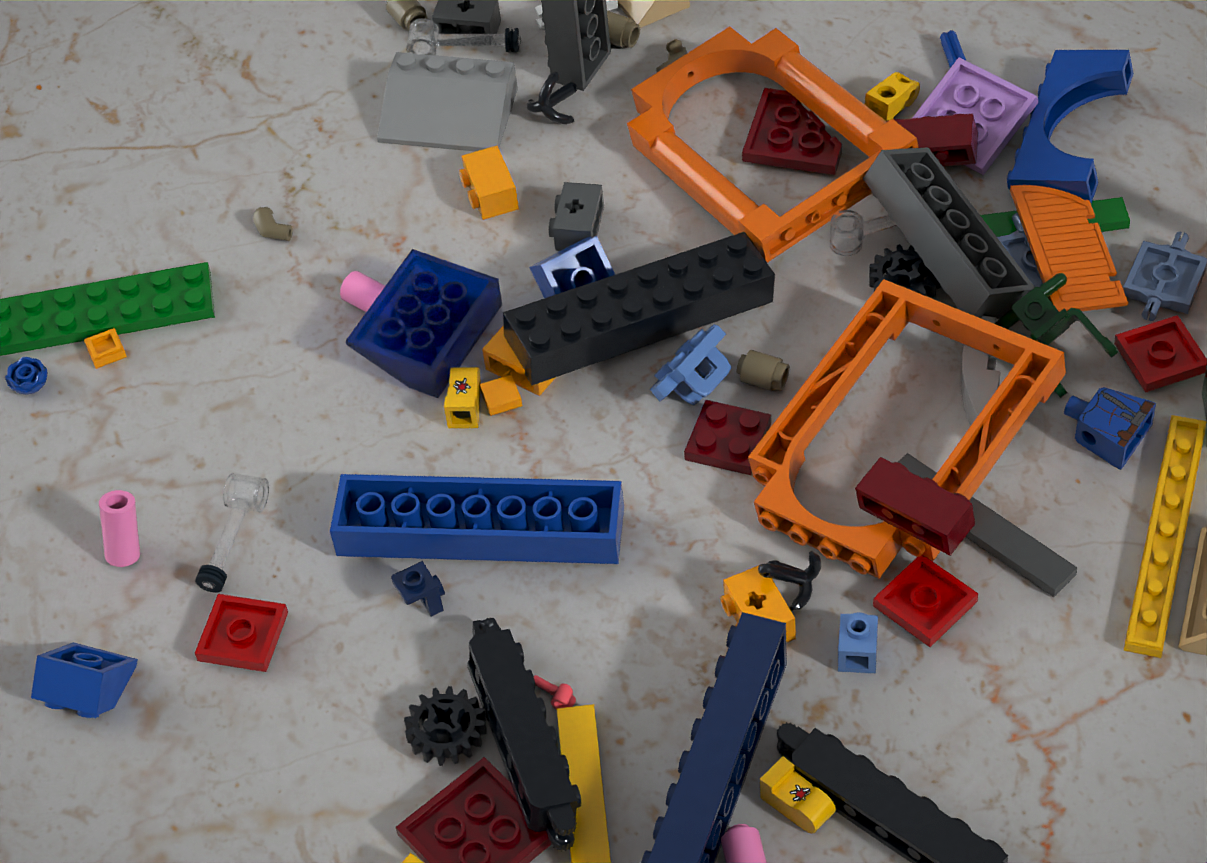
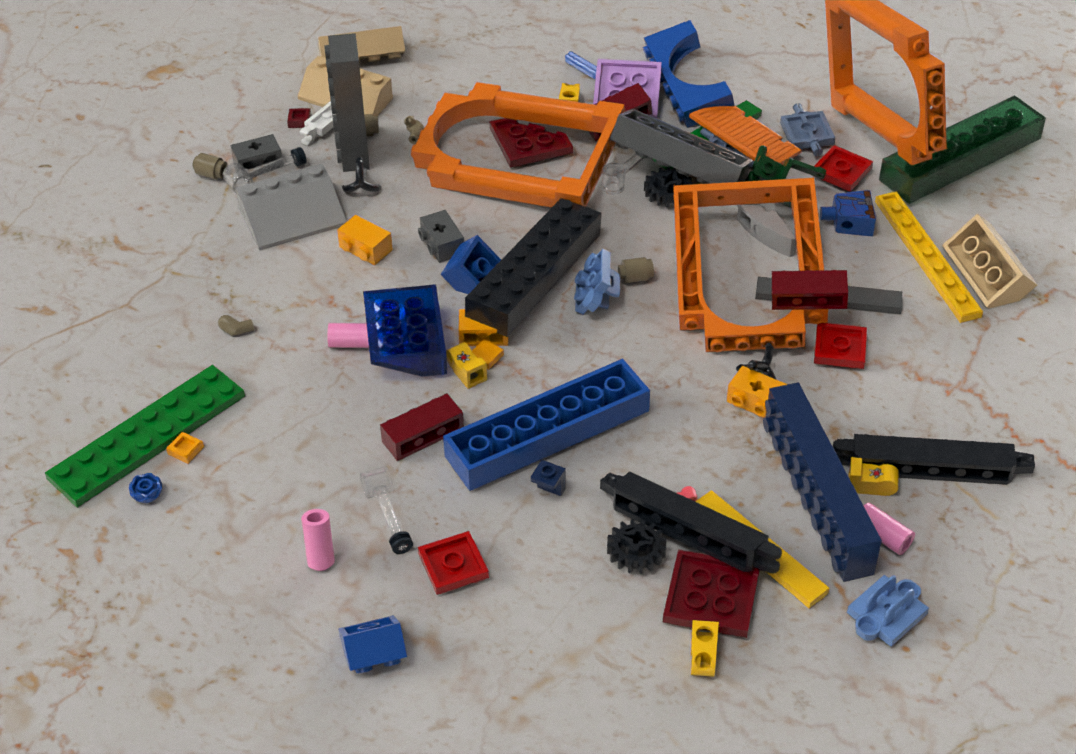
camera: 40 degrees left, 5 degrees down
(348, 449) = (421, 426): none -> dark red brick
(726, 436) = (646, 315): dark red plate -> none
(858, 643) = (828, 383): medium blue brick -> none

